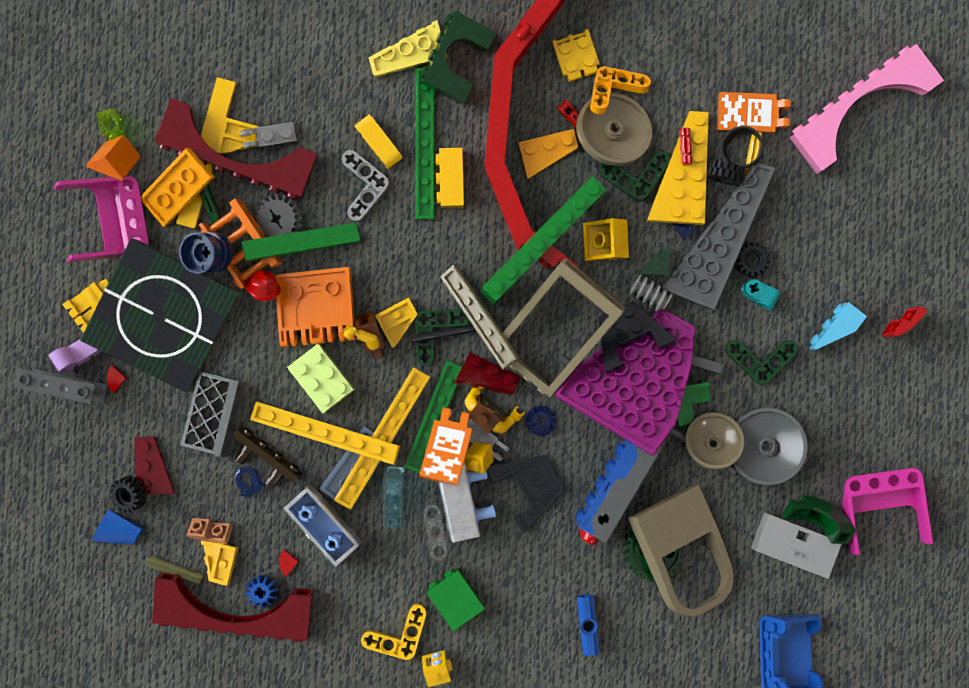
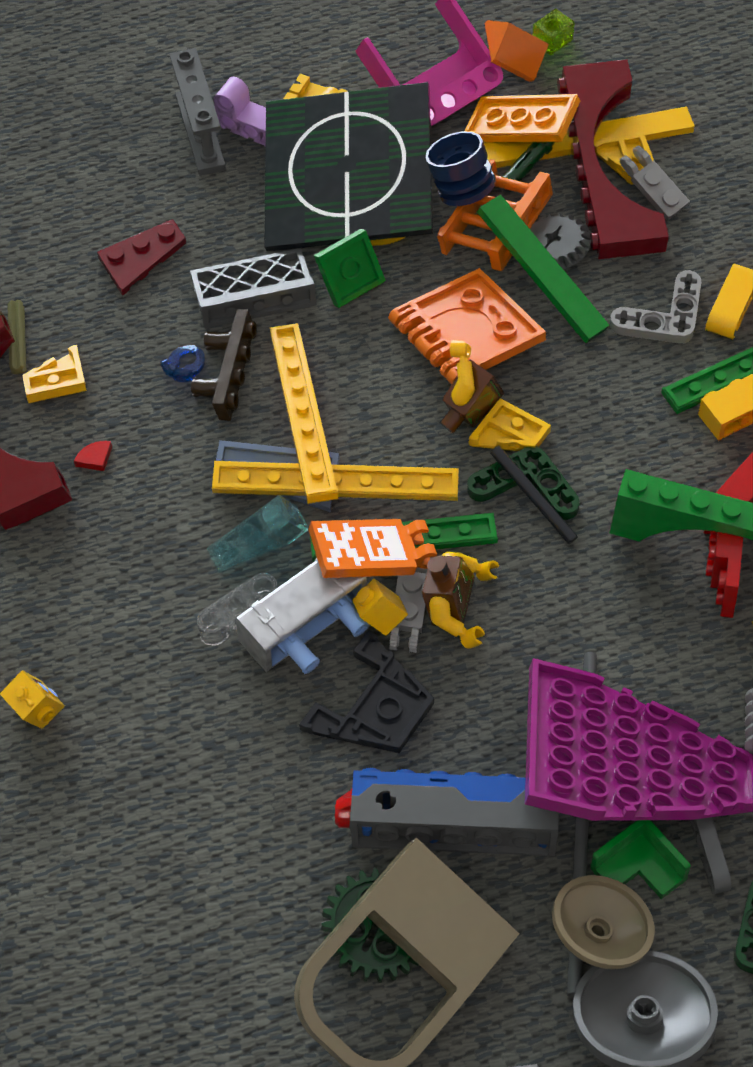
camera: 70 degrees right, 30 degrees down
(115, 379) = (237, 170): red tile -> none
(118, 529) = (40, 253): blue slope -> none
(135, 489) = (94, 239): black tyre -> none
(208, 531) = (90, 347): nougat slope -> none
(236, 353) = (349, 268): none -> green tile
(263, 286) = (459, 251): red piece -> none
(264, 585) = (38, 440): blue gear -> none
(321, 378) = (374, 376): yellowish green brick -> none
(323, 525) = (171, 466): light blue piece -> none
(399, 643) = (46, 643): yellow beam -> none
(455, 598) = (150, 681): green brick -> none
(479, 317) = (579, 516): tile -> none
(486, 374) = (506, 567): dark red wing -> none
(542, 411) = (484, 686): clear blue gear -> none
(589, 637) = (186, 896): blue piece -> none
(592, 292) = (714, 618): dark tan window -> none
(629, 327) = (691, 712): black wing -> none

